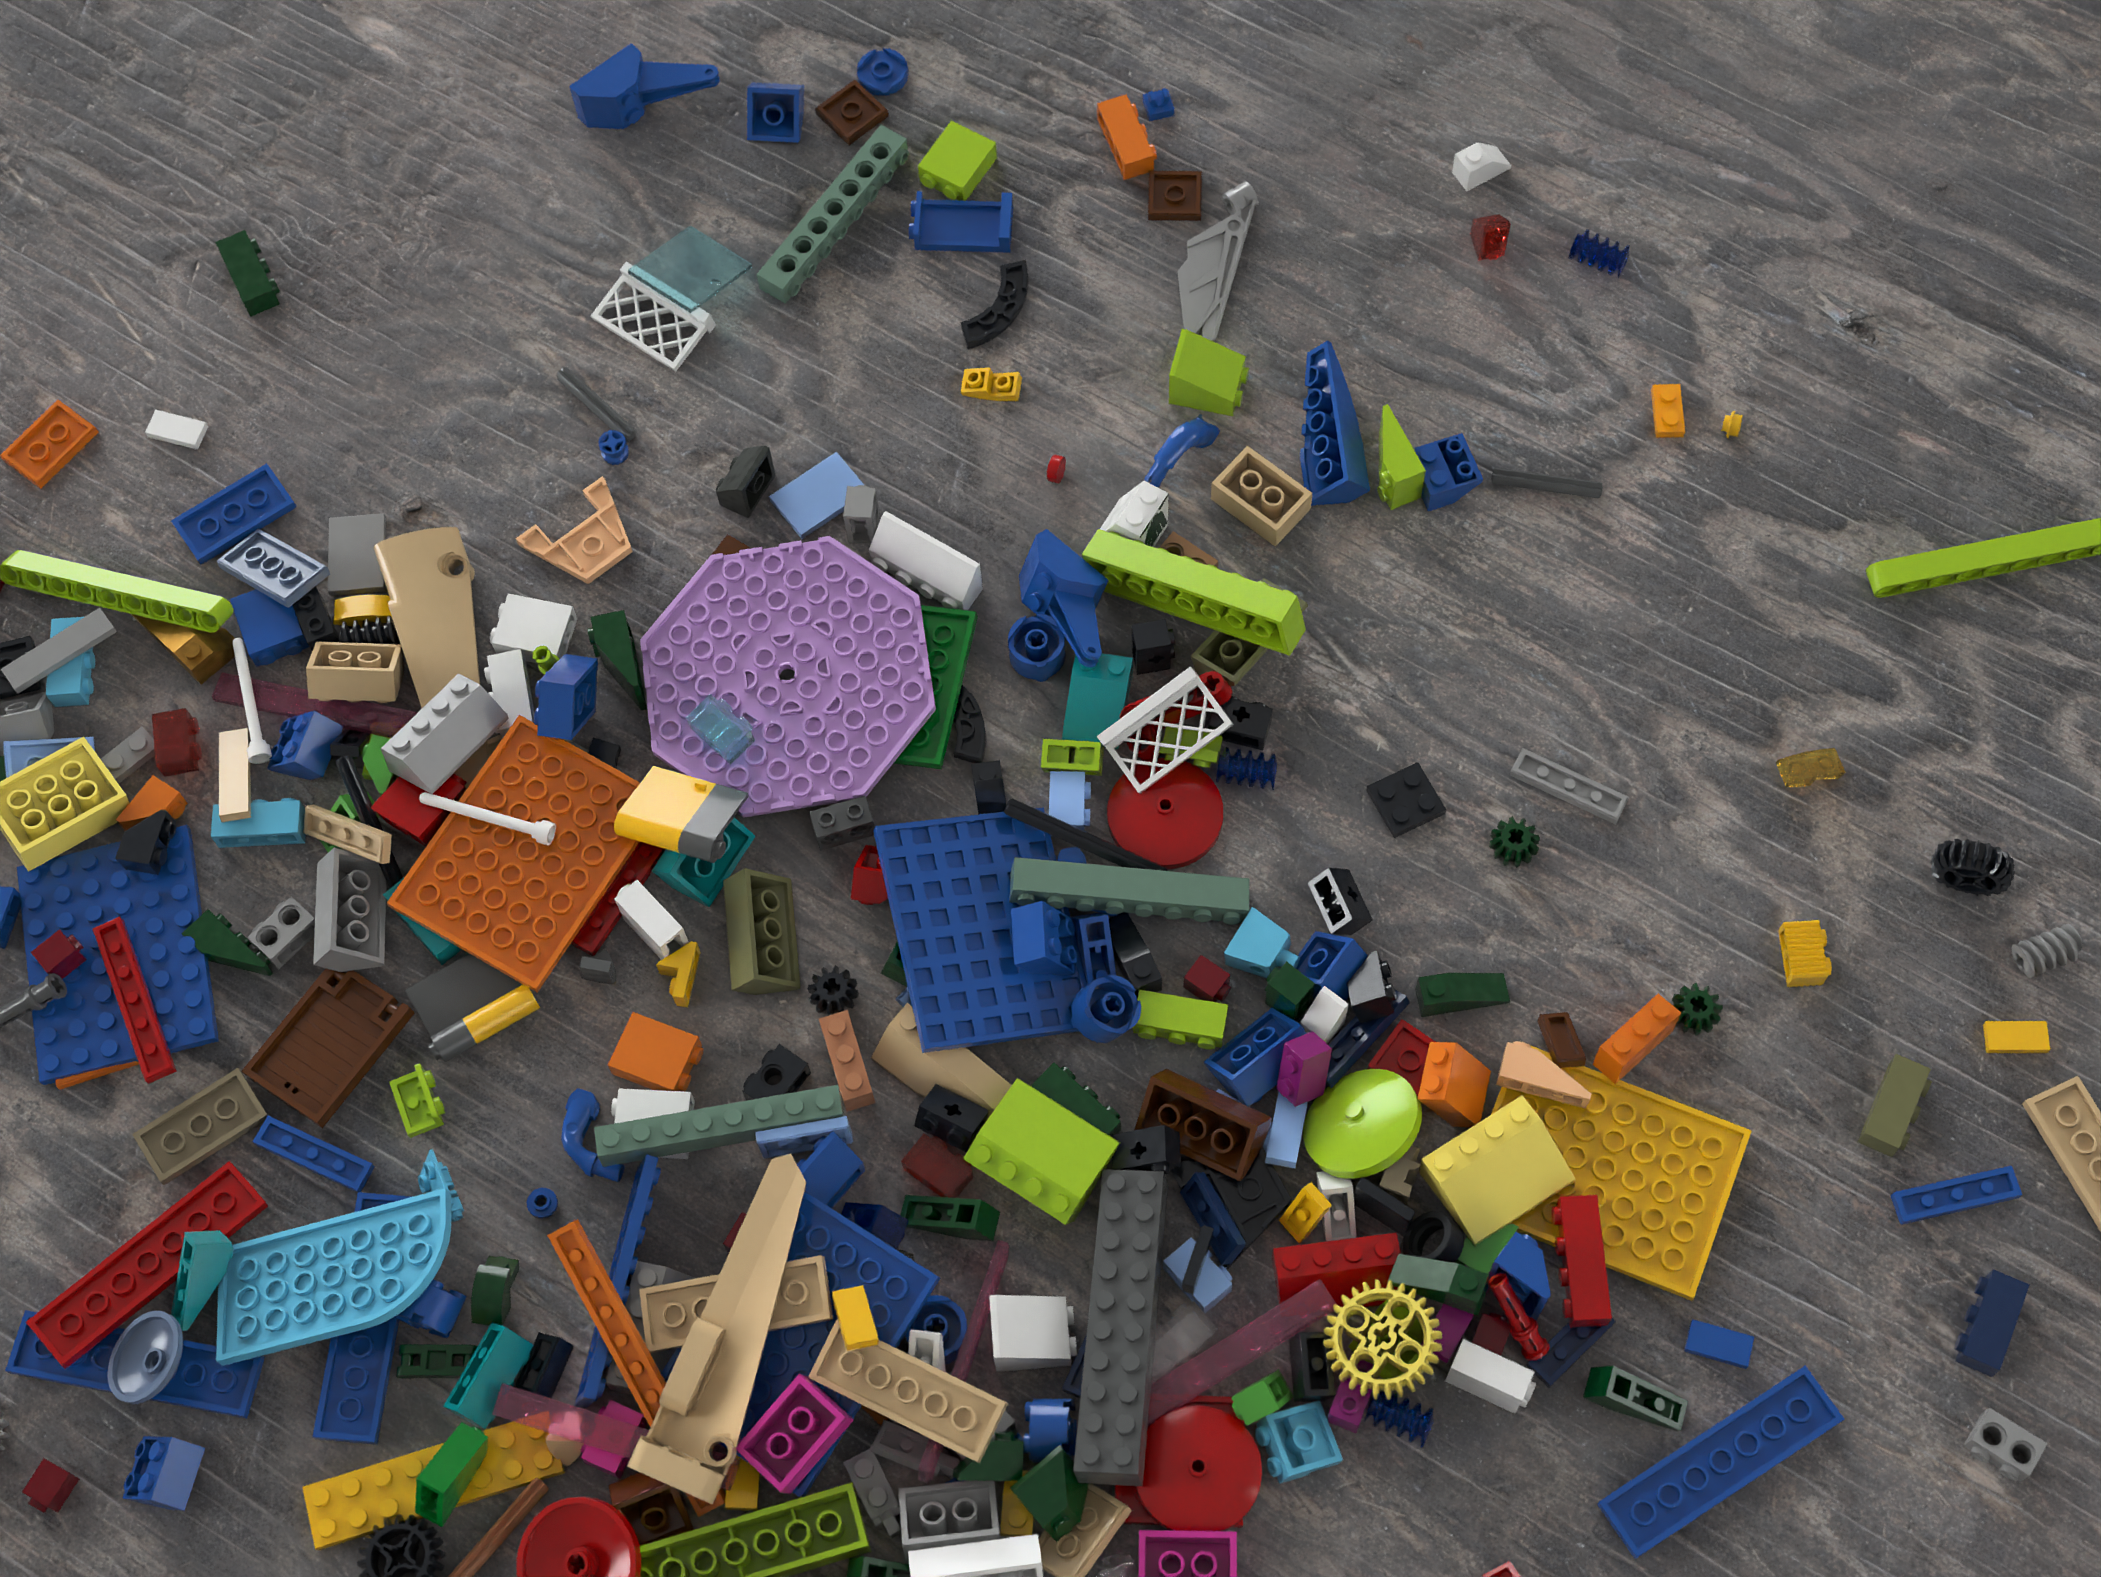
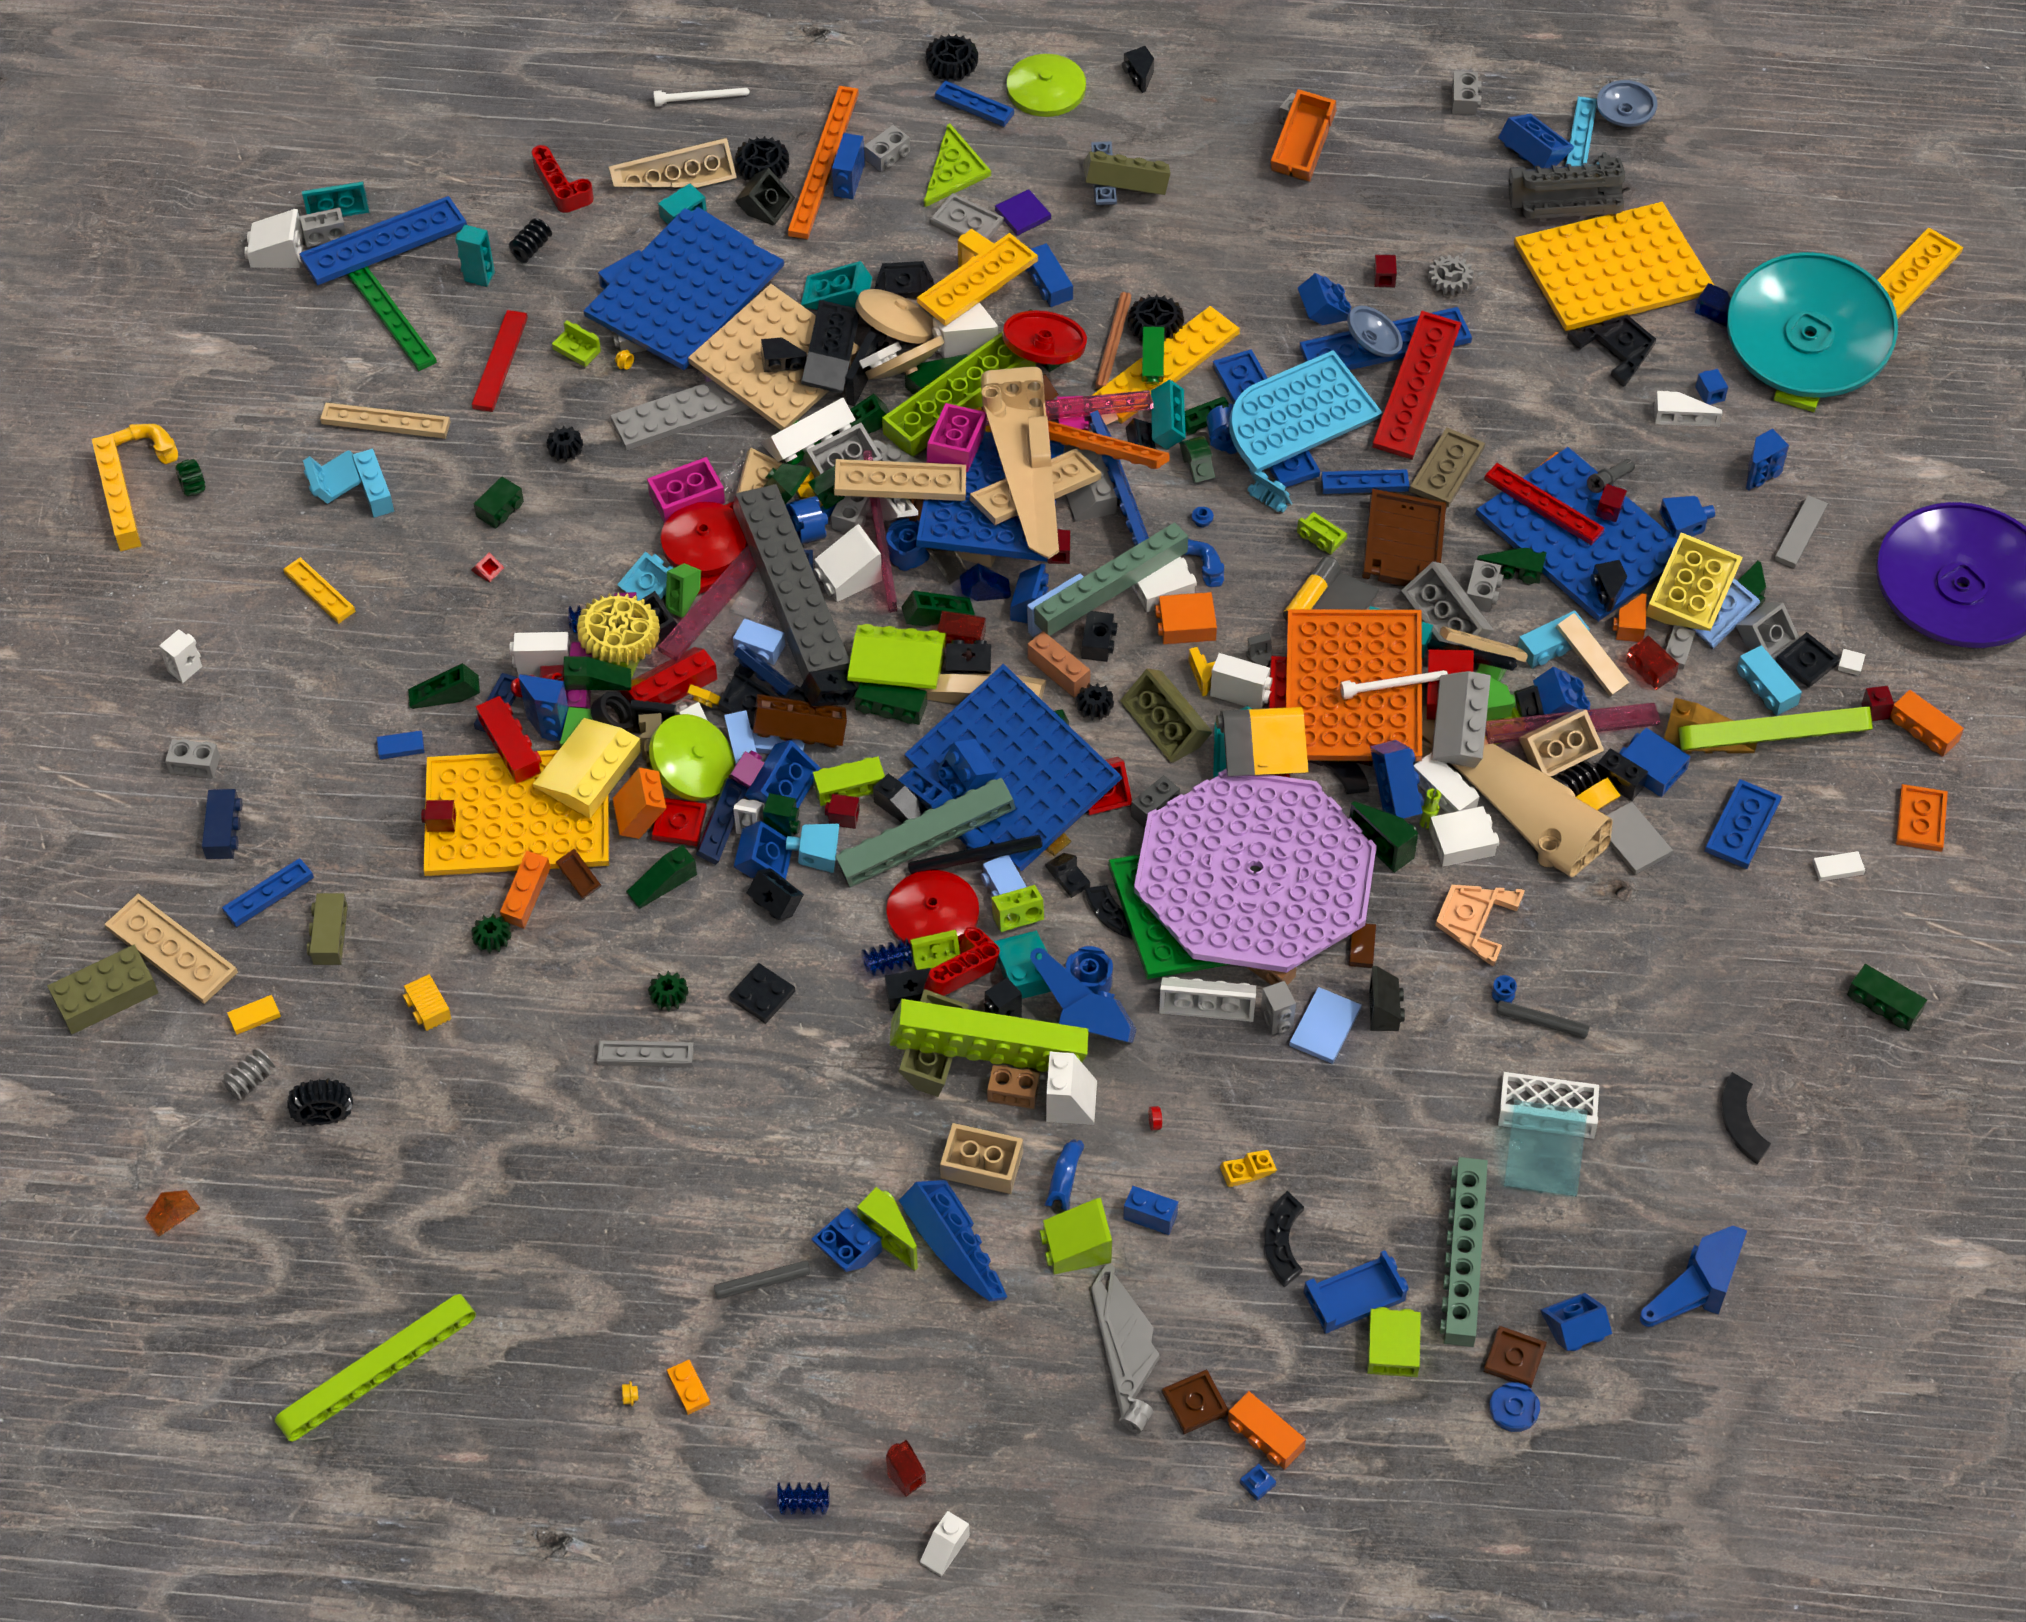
camera: 150 degrees right, 10 degrees down
(58, 650) = (1775, 671): light grey tile -> none
(200, 1270) = (1380, 389): teal slope -> none
(258, 749) = (1590, 678): white piece -> none
(273, 567) = (1678, 789): sand blue tile -> none
(483, 231) = (1737, 1119): none -> black tile
(721, 728) = (1274, 803): clear light blue brick -> none
(855, 1318) = (954, 496): yellow tile -> none
(1105, 1009) = (900, 753): blue brick -> none
(1116, 376) = (1150, 1210): none -> blue brick
(1148, 711) = (972, 944): white fence -> none
(1197, 1259) = (760, 633): black tile -> none
(1370, 991) = (725, 843): black slope -> none
(1535, 1074) = (586, 835): light nougat slope -> none
(1710, 1186) = (439, 815): none -> dark red brick
(1720, 1462) = (375, 680): blue plate -> none
(1809, 766) = (466, 1136): clear yellow slope -> none

